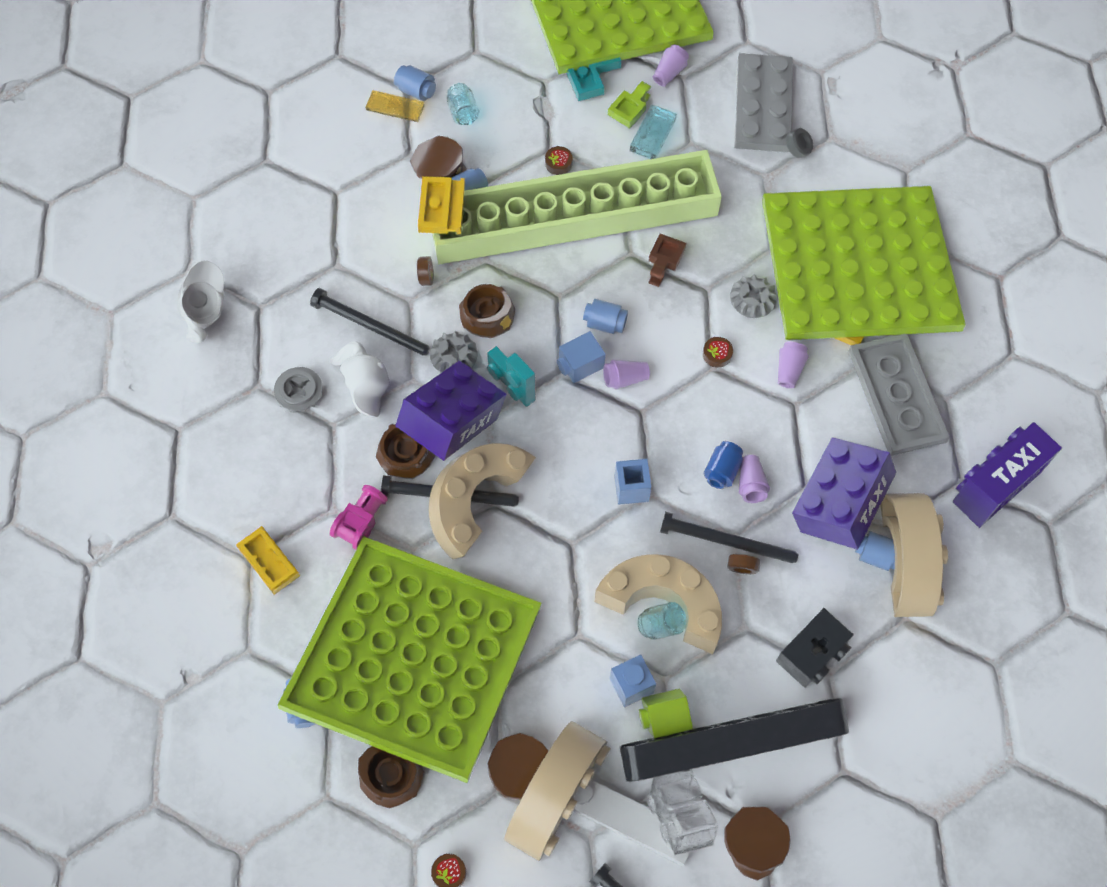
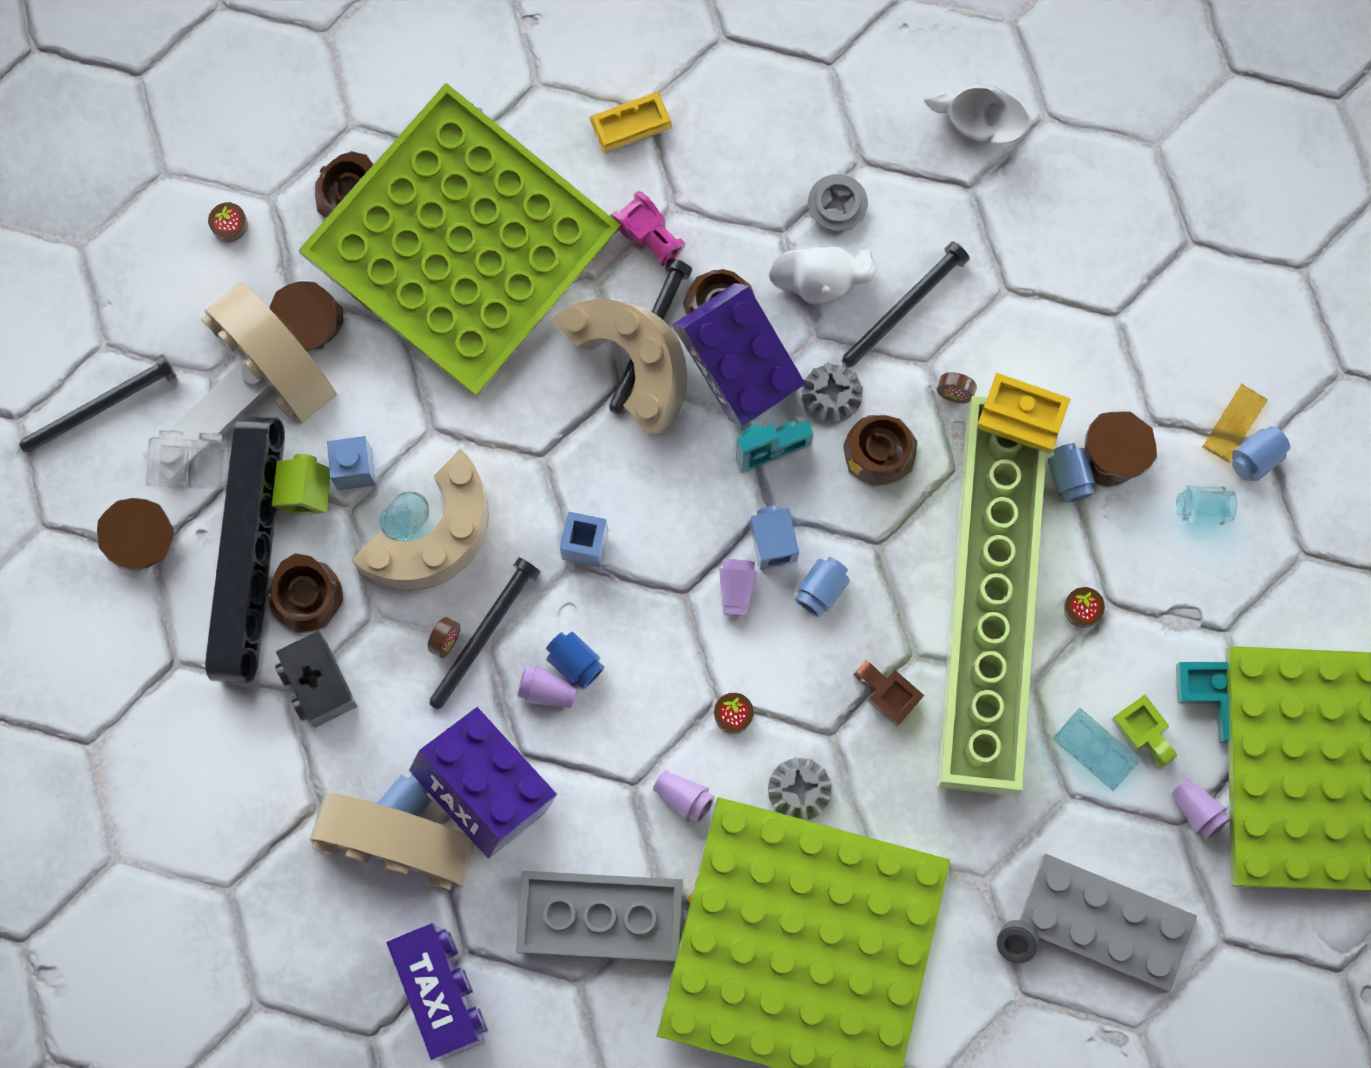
camera: 110 degrees right, 10 degrees up
(749, 686) = (304, 593): none -> reddish brown hat

